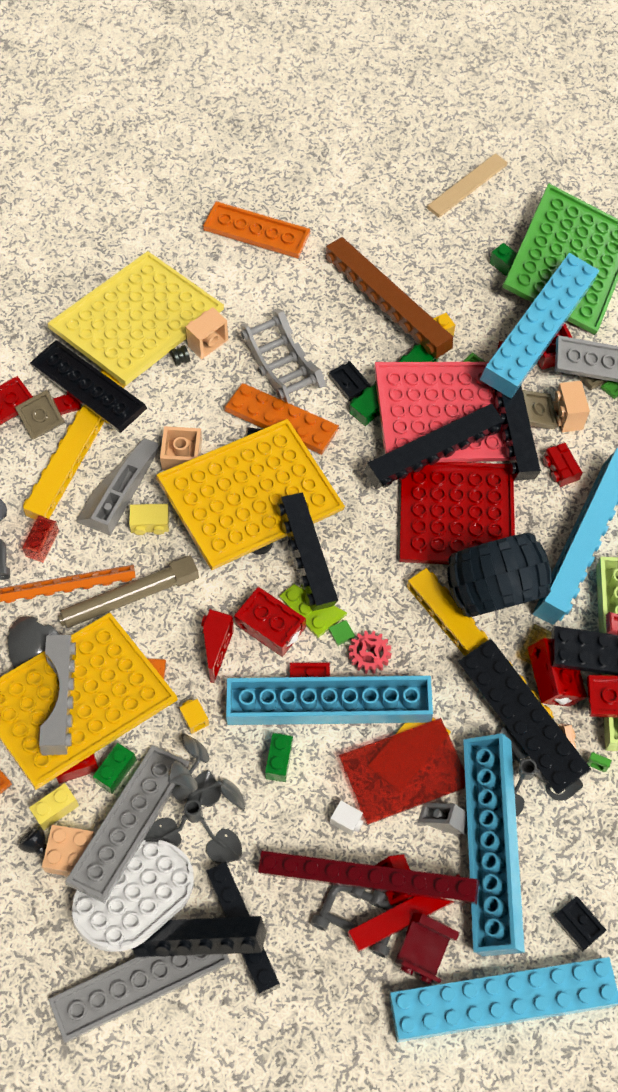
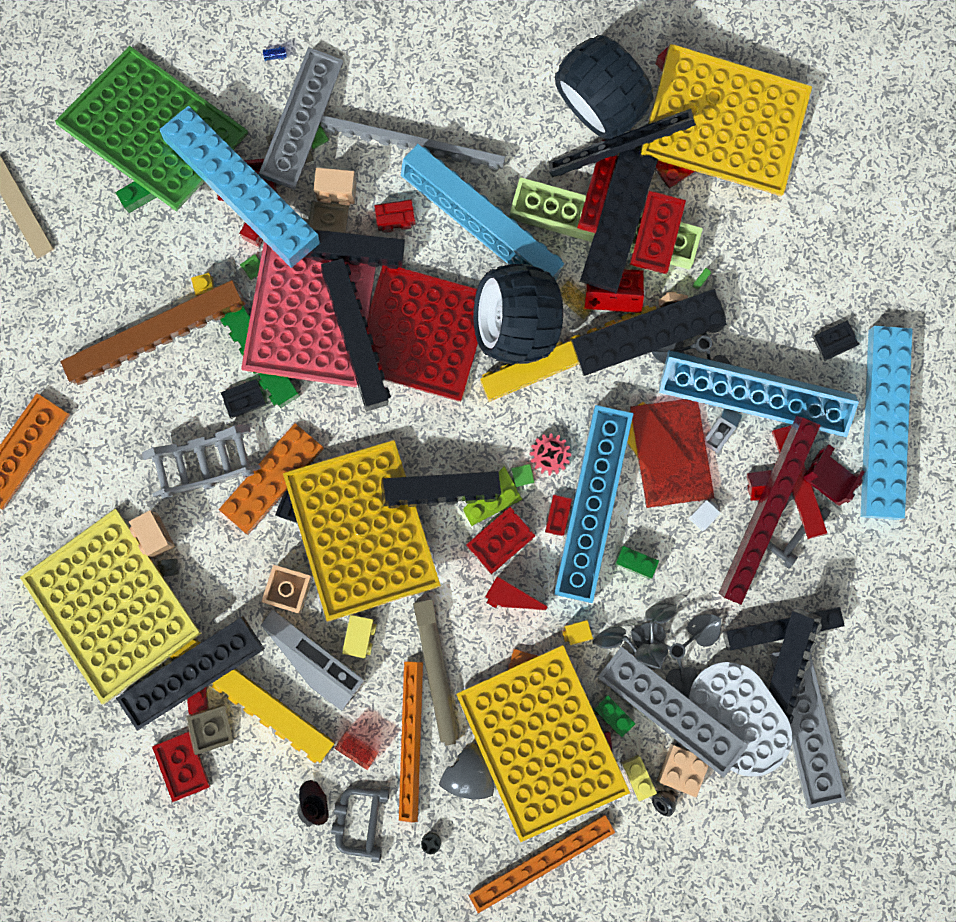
camera: 80 degrees left, 20 degrees up
(55, 730) = (584, 766): light grey arch -> none

